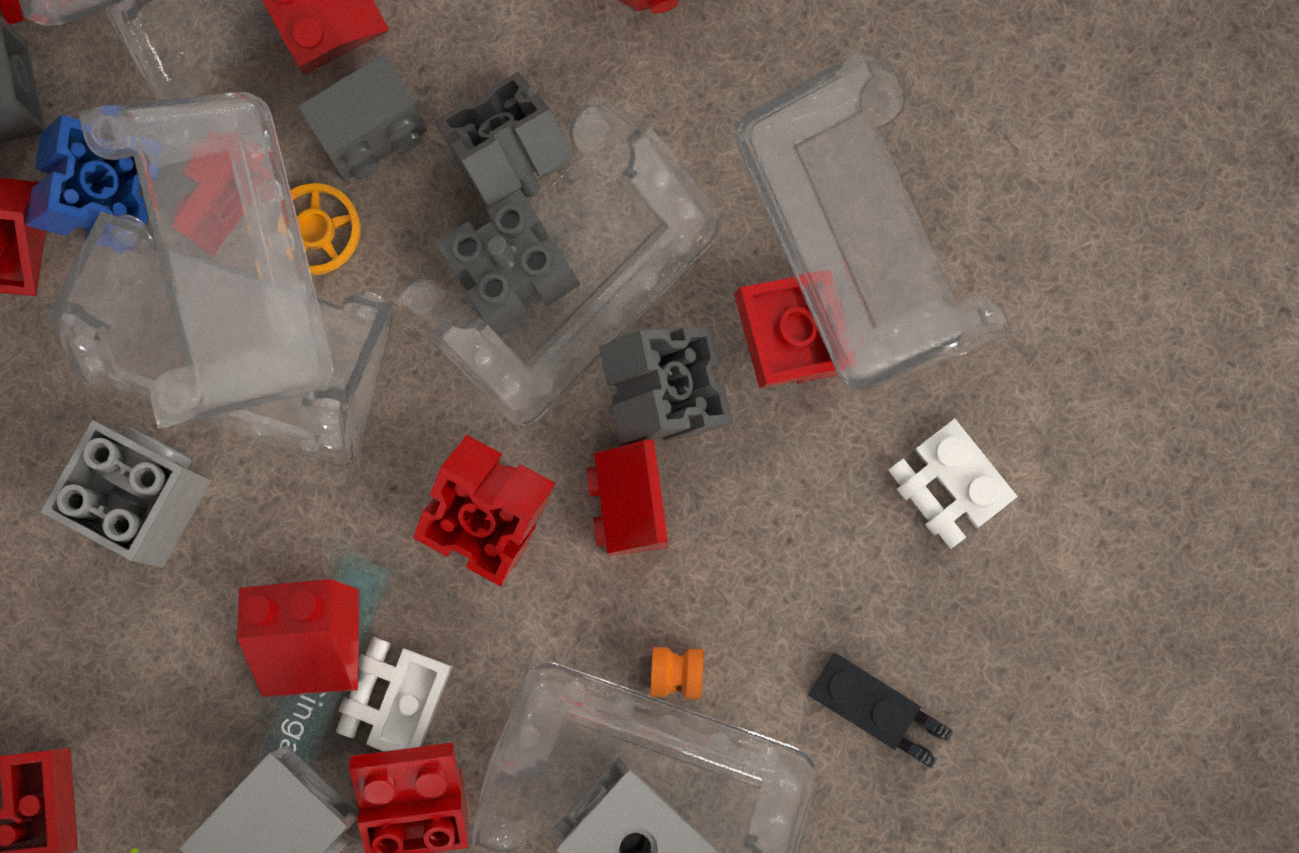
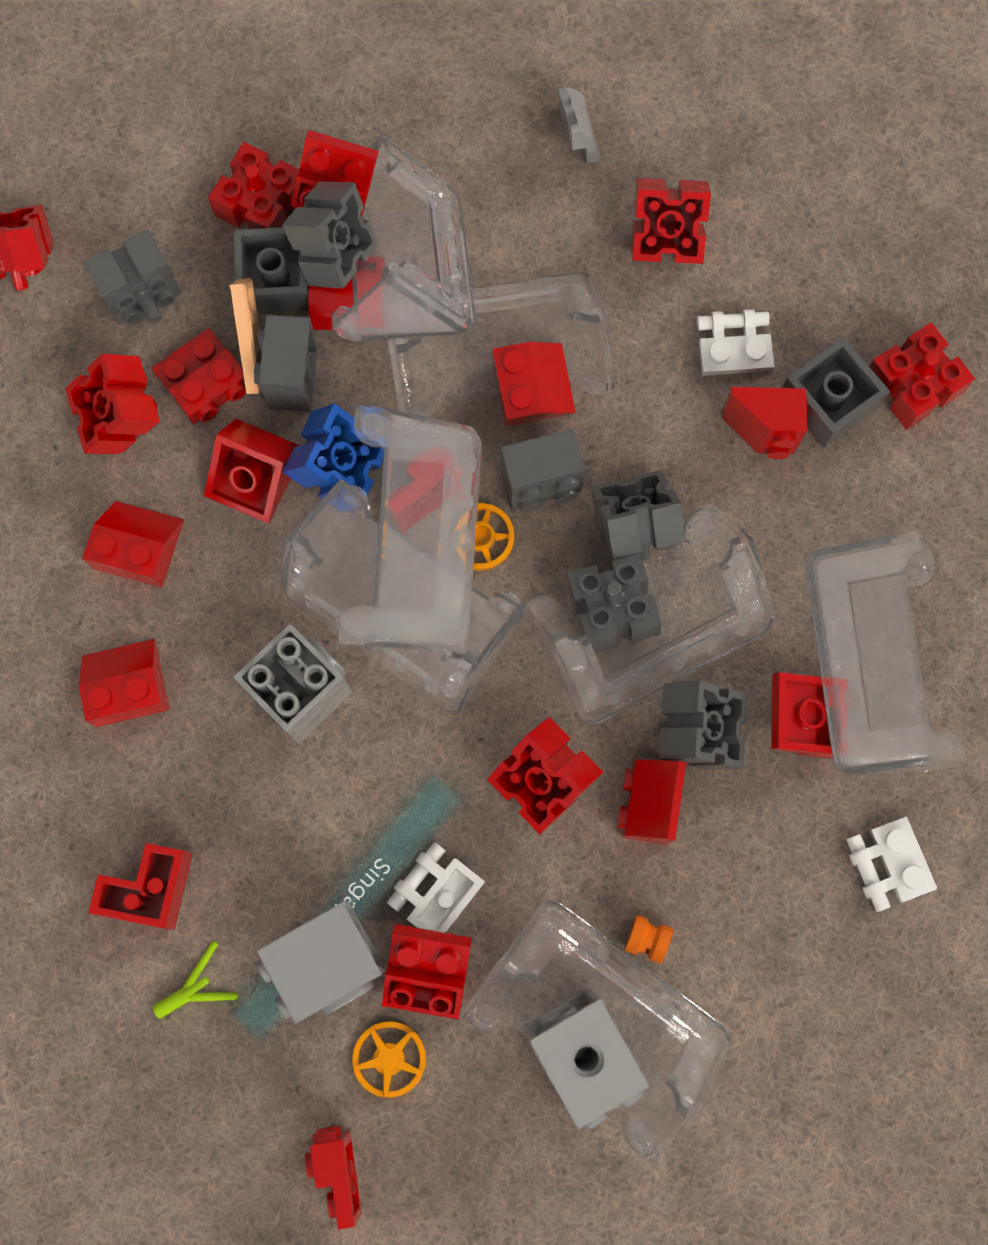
camera: 15 degrees right, 5 degrees down
(300, 636) = (384, 825): red slope -> none
(874, 707) = (787, 1012): black hinge -> none

